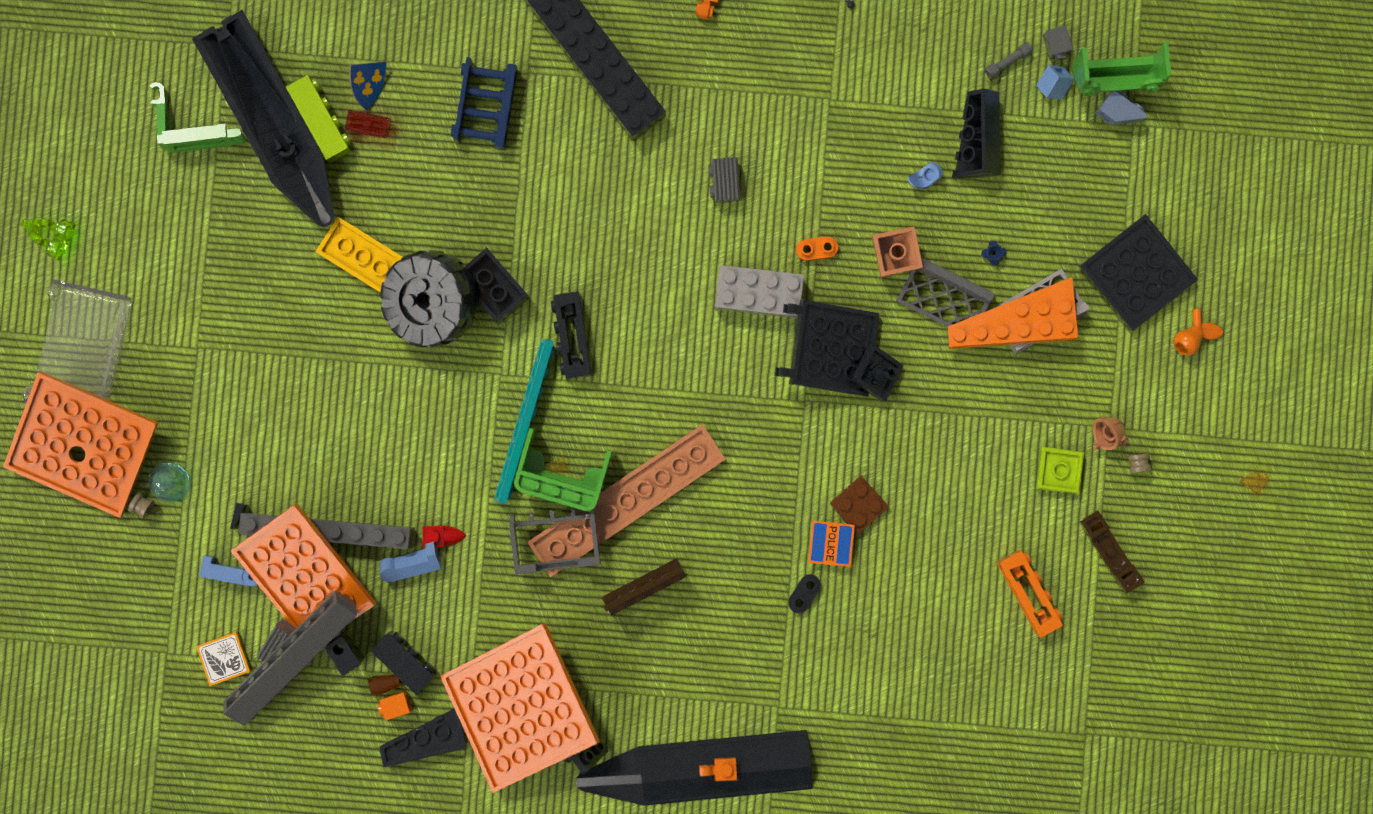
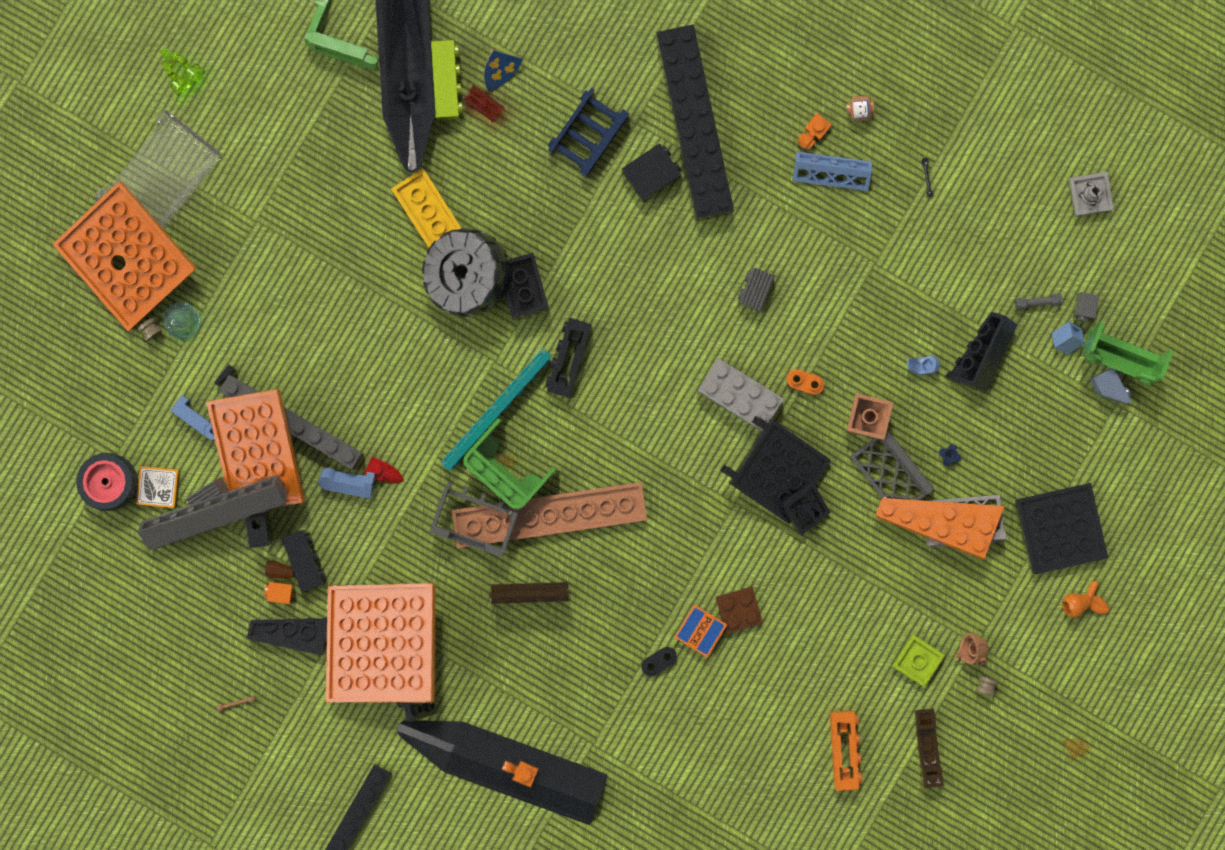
camera: 25 degrees right, 0 degrees up
(165, 691) = (92, 481): none -> wheel
(566, 113) = (651, 171): none -> black panel
(742, 21) = (832, 166): none -> medium blue fence

